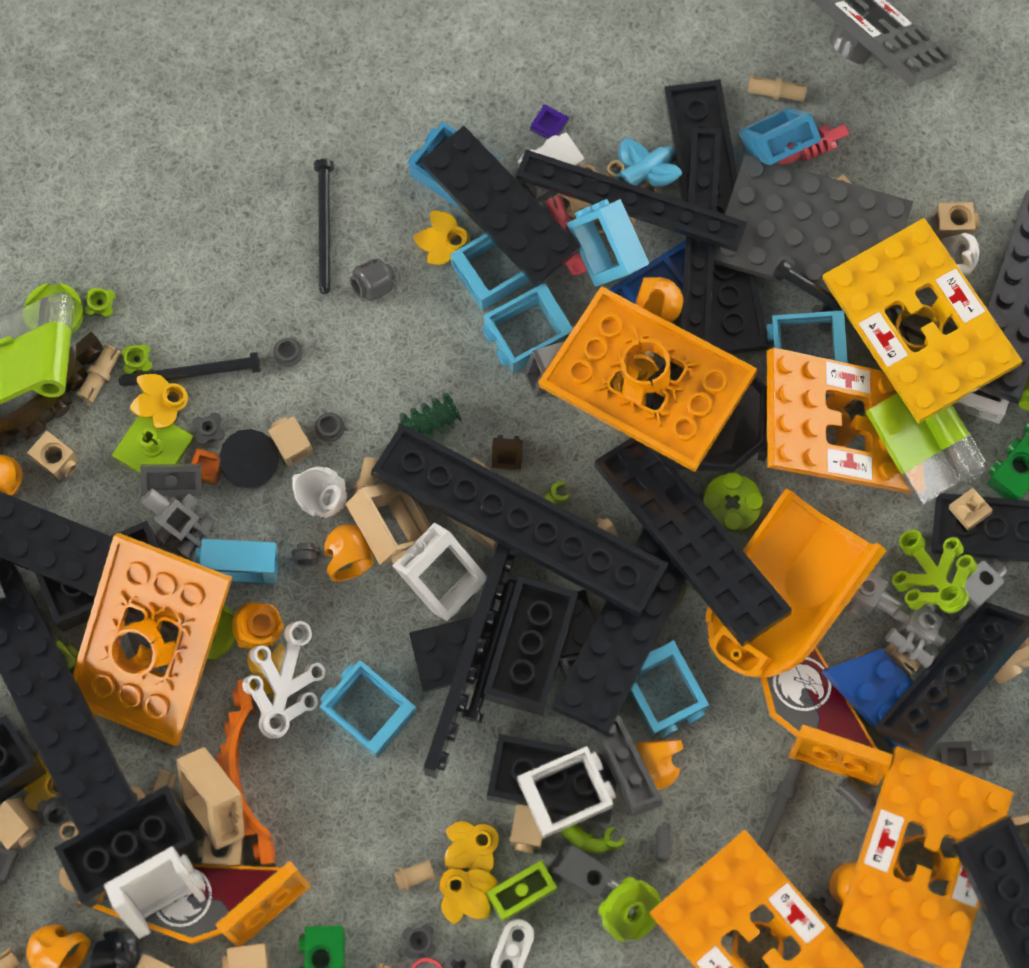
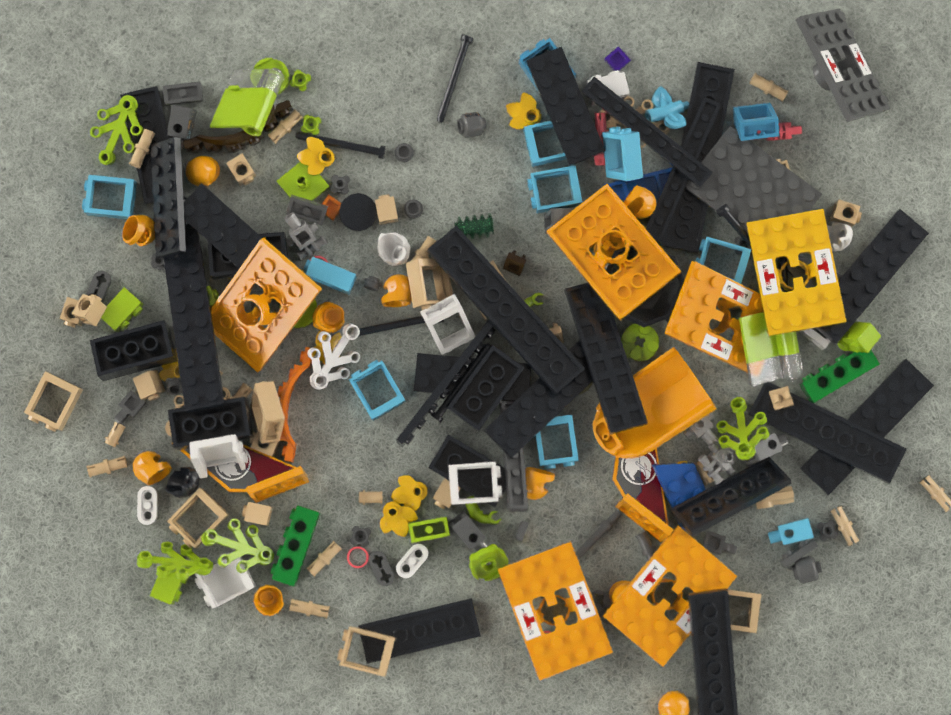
camera: 20 degrees right, 10 degrees up
(360, 604) = (392, 325): none -> black bar

